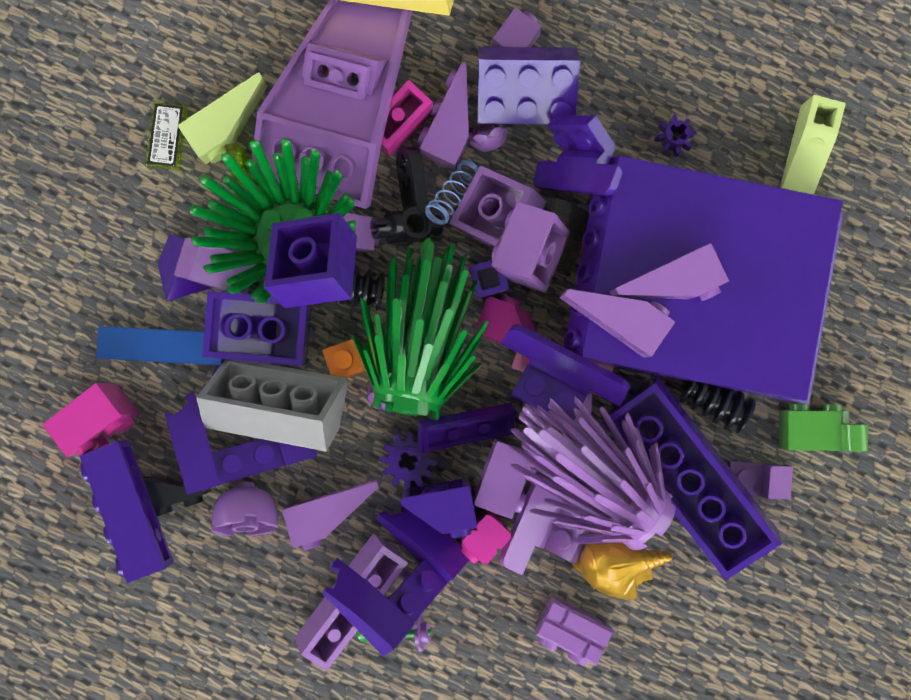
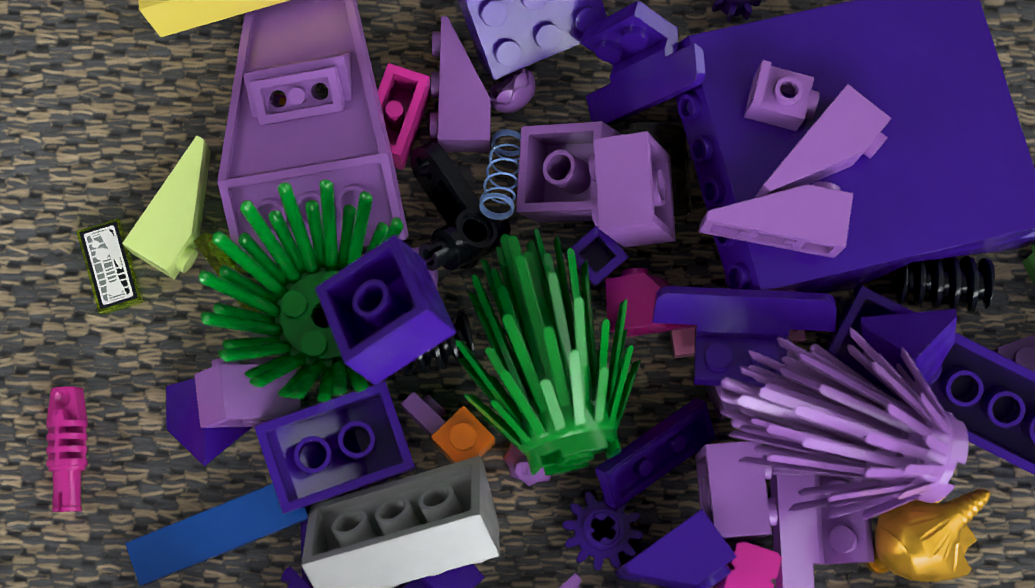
camera: 30 degrees left, 10 degrees down
(87, 247) = (66, 446): none -> dark pink hinge
(328, 330) = (424, 412): none -> medium lavender plate
(649, 230) = (771, 107): none -> medium lavender brick
(674, 437) = (923, 335): none -> dark purple slope

